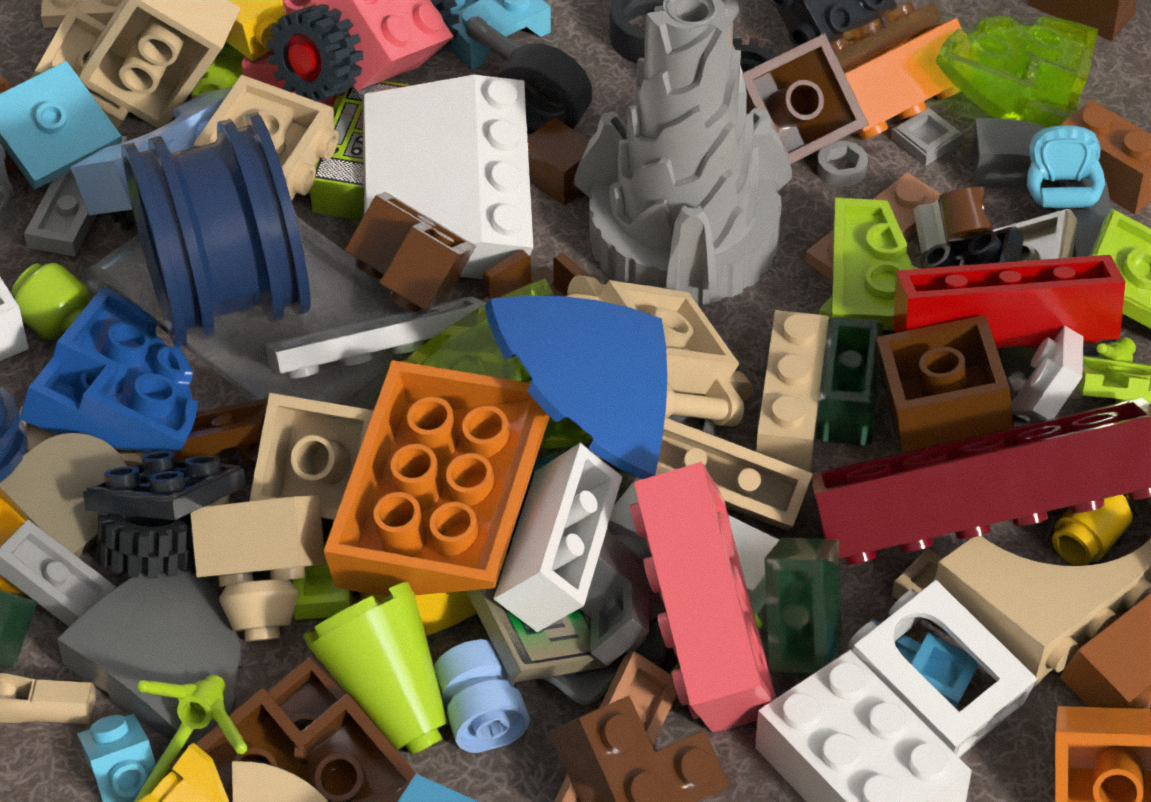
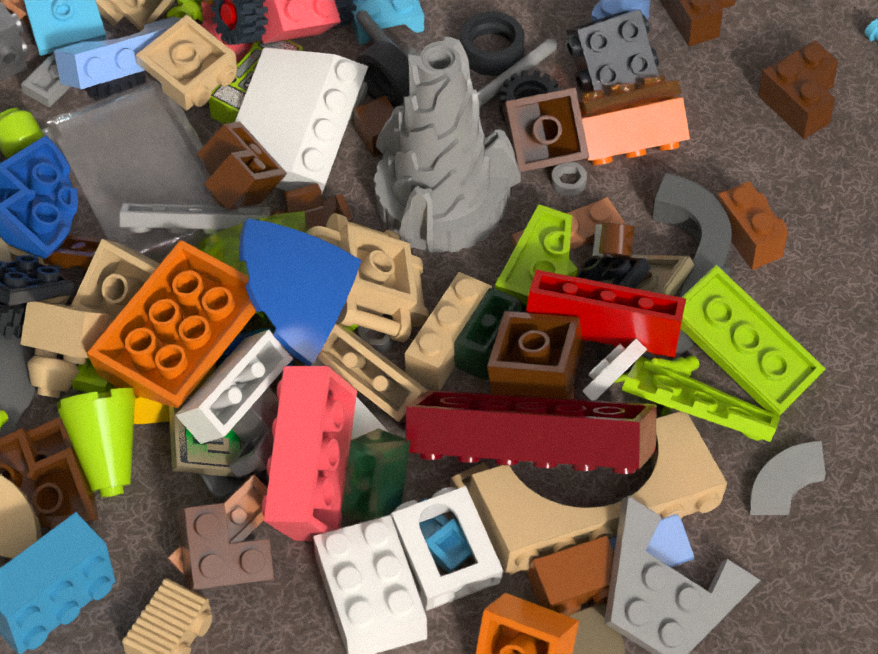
camera: 20 degrees right, 5 degrees up
(217, 228) = (110, 120): dark blue wheel -> none
(480, 697) = (152, 478): light blue wheel -> none
(926, 136) = (636, 174): light grey tile -> none
(1021, 68) = (718, 144): clear neon green brick -> none
(1065, 155) = (706, 217): medium azure piece -> none
(1090, 534) = (597, 484): yellow brick -> none

